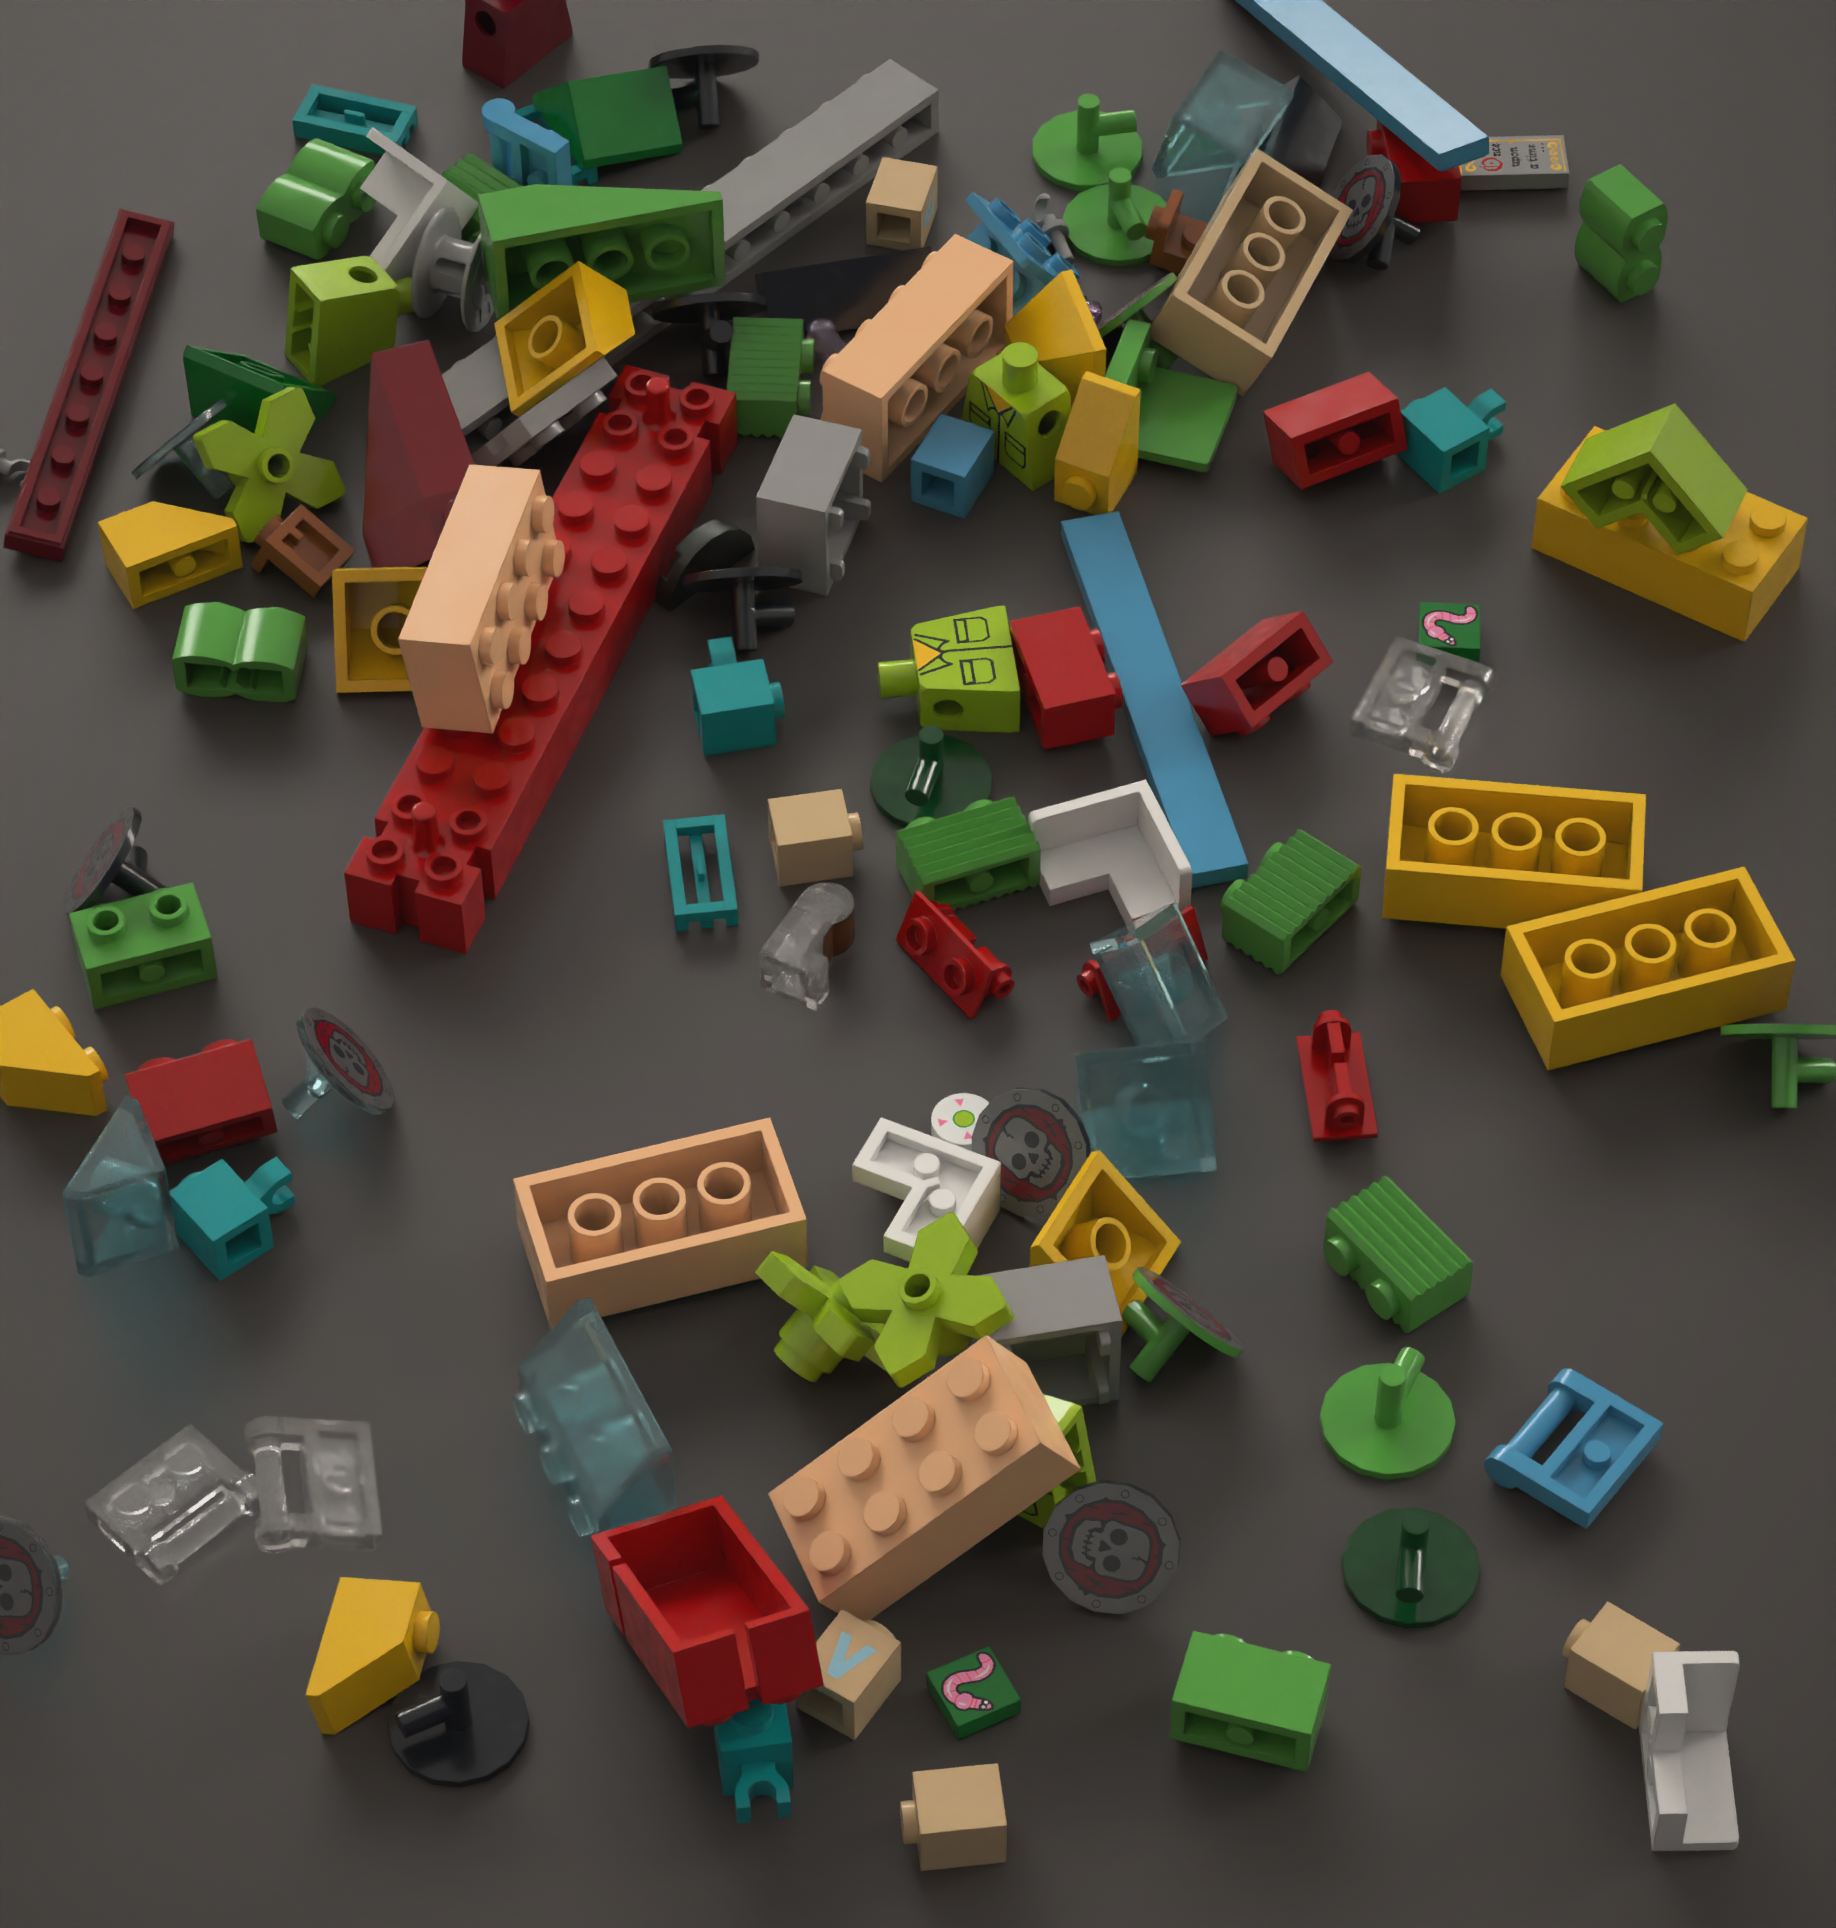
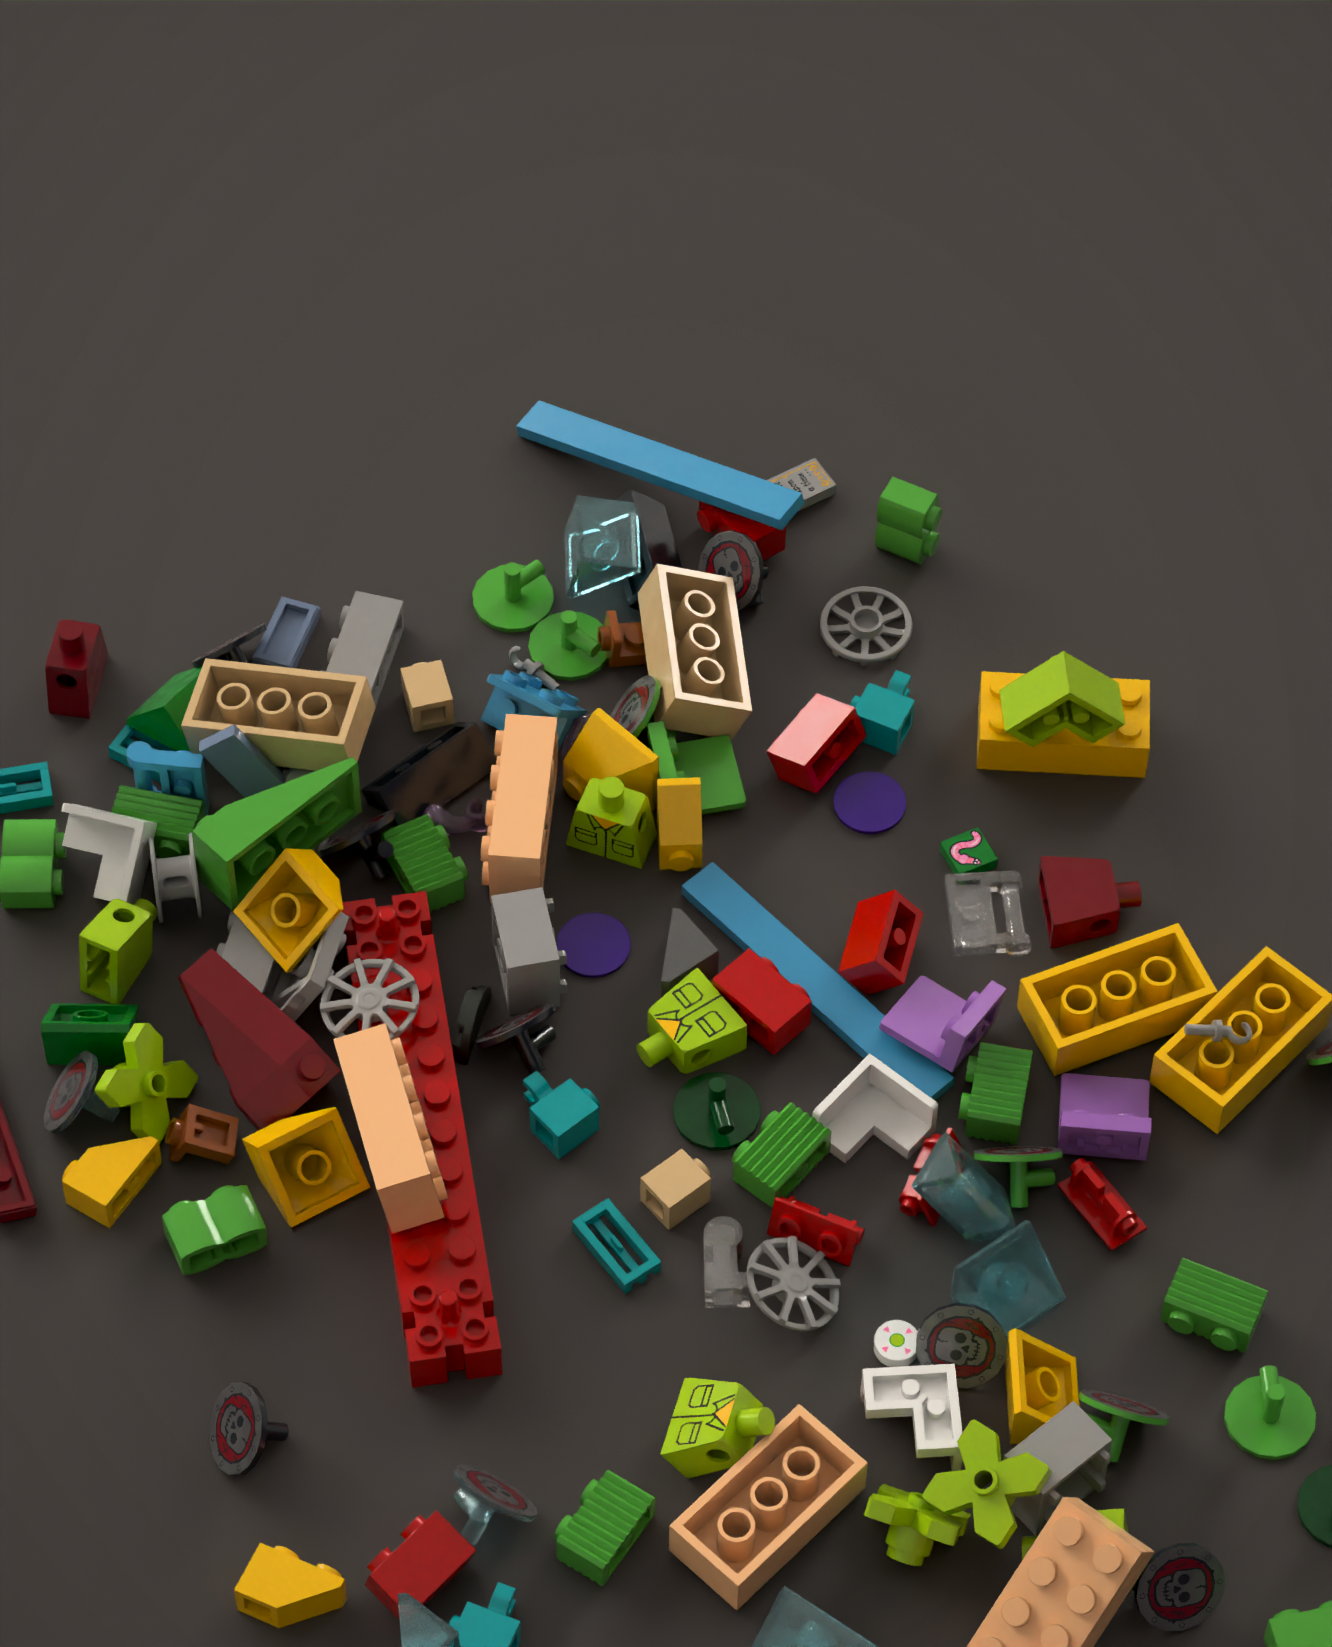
camera: 30 degrees left, 5 degrees up
(143, 945) = (299, 1472): bright green brick -> none
(452, 1161) = (604, 1526): none -> bright green brick
(577, 472) = (369, 1001): none -> light grey wheel
(606, 153) = (240, 761): none -> sand blue tile
(655, 1101) = (713, 1426): none -> lime torso
(688, 131) = (286, 712): none -> tan brick
(787, 89) = (287, 634): none -> sand blue tile
(877, 998) = (793, 1284): none -> light grey wheel
(913, 546) = (594, 944): none -> dark purple piece
(952, 466) = (588, 876): dark azure brick -> none
(1006, 580) = (686, 951): none -> dark grey slope
(1249, 1004) = (1020, 1176): none -> bright green shield
(1272, 791) = (941, 1022): none -> medium lavender bracket
(1367, 530) = (869, 802): none -> dark purple piece
(1406, 985) = (1104, 1116): none -> medium lavender bracket
(1501, 339) = (866, 625): none -> light grey wheel
(1555, 732) = (1082, 898): none -> dark red torso
(1606, 930) = (1217, 1031): none -> light grey hand

